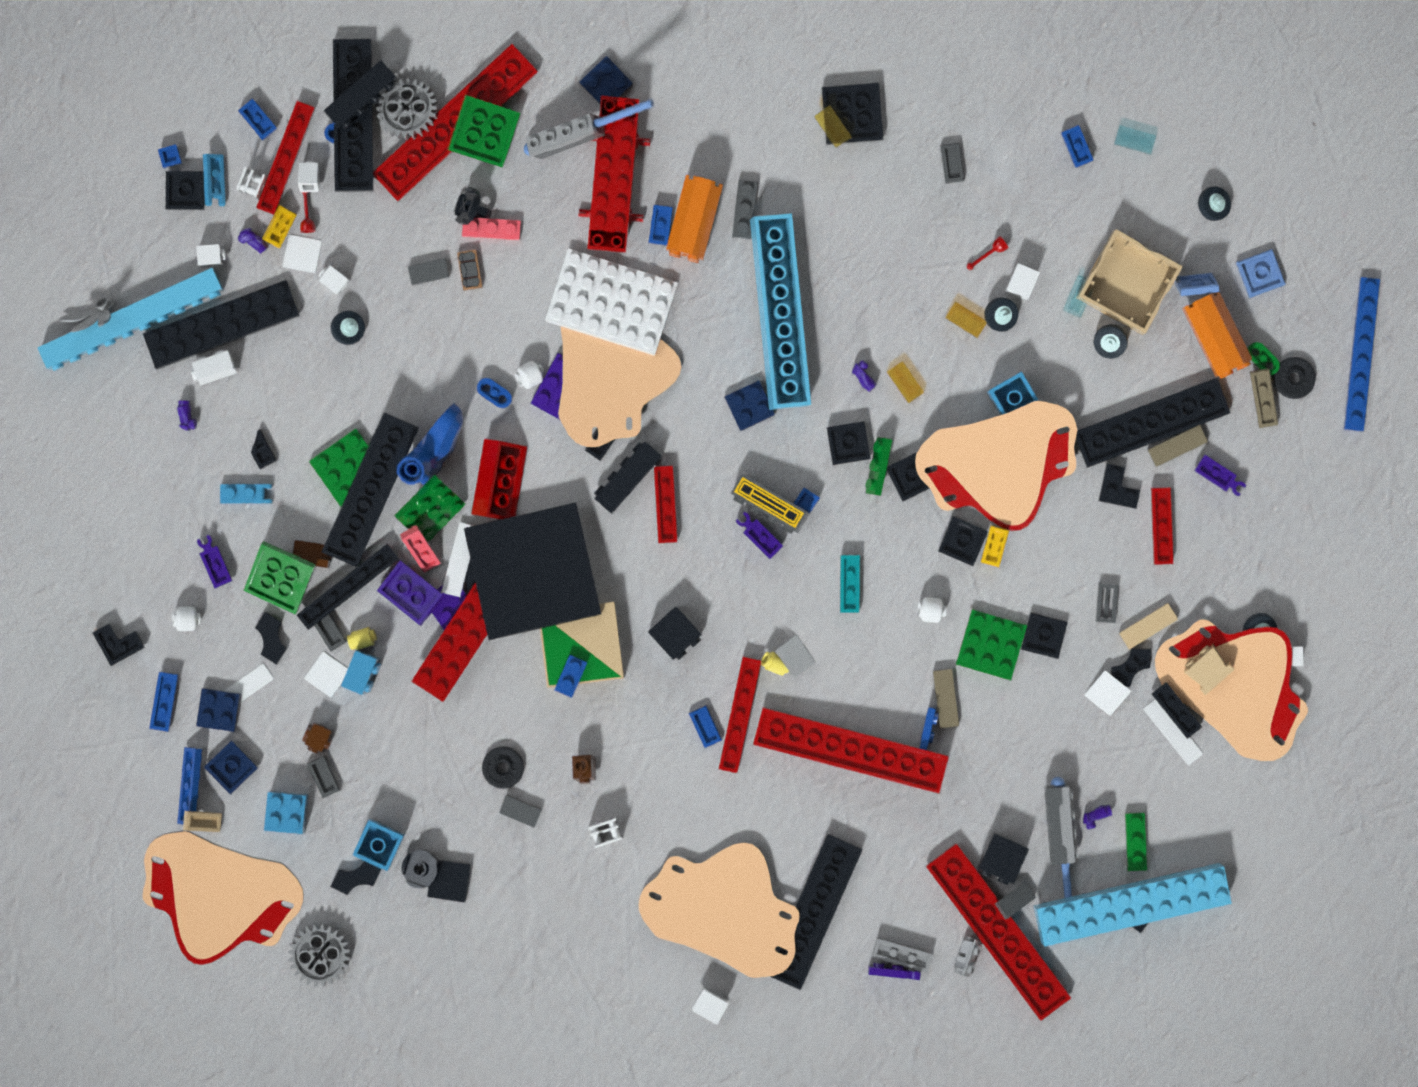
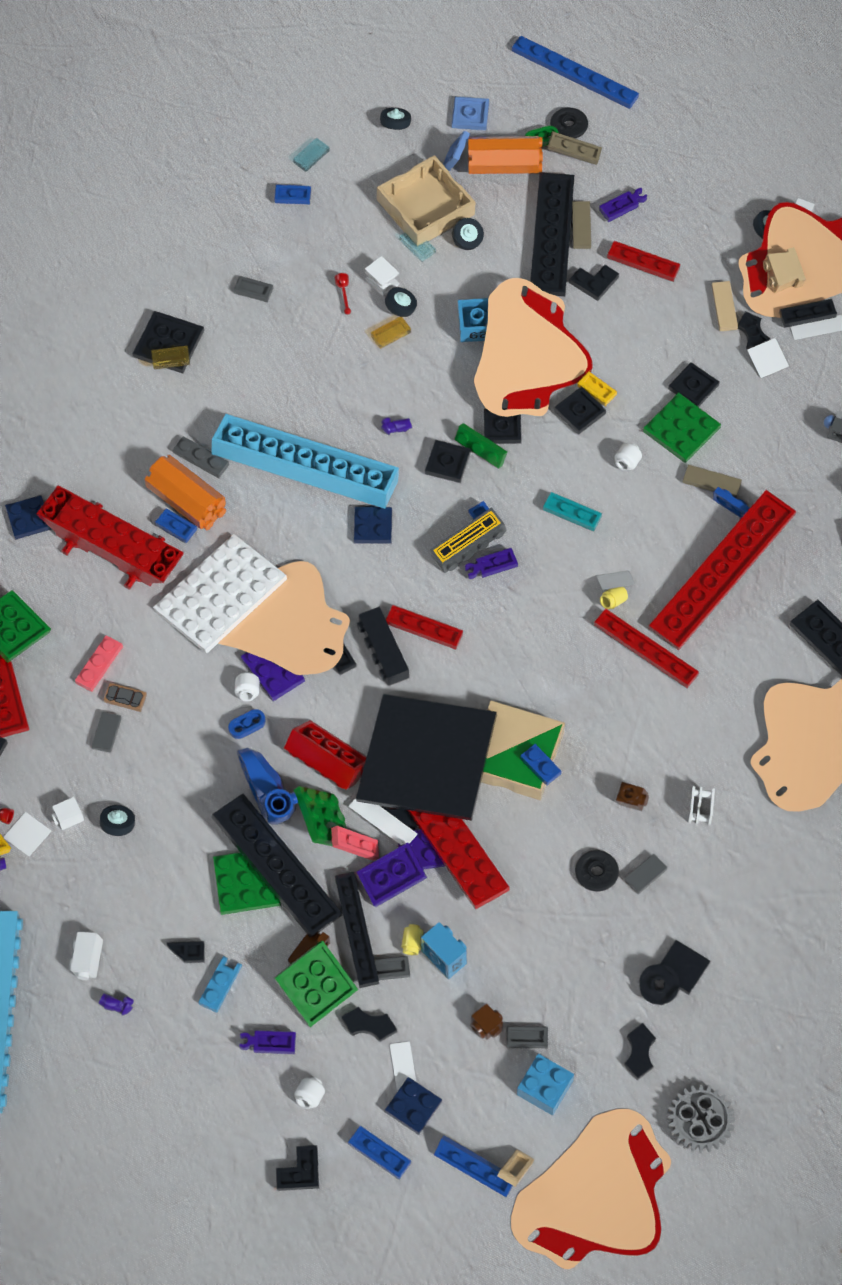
camera: 60 degrees left, 25 degrees down
(221, 324) = (50, 934): black plate -> none
(231, 767) = (475, 1118): dark blue plate -> none
(326, 674) = (430, 990): white sticker -> none
(378, 844) = (618, 1010): dark azure brick -> none
(468, 207) = (69, 667): black tile -> none
(575, 132) = (55, 546): light grey piece -> none
(675, 633) = (545, 666): black brick -> none
(705, 726) = (643, 682): blue tile -> none
(905, 382) = (418, 398): clear yellow tile -> none
(1114, 603) = (687, 330): dark grey tile -> none

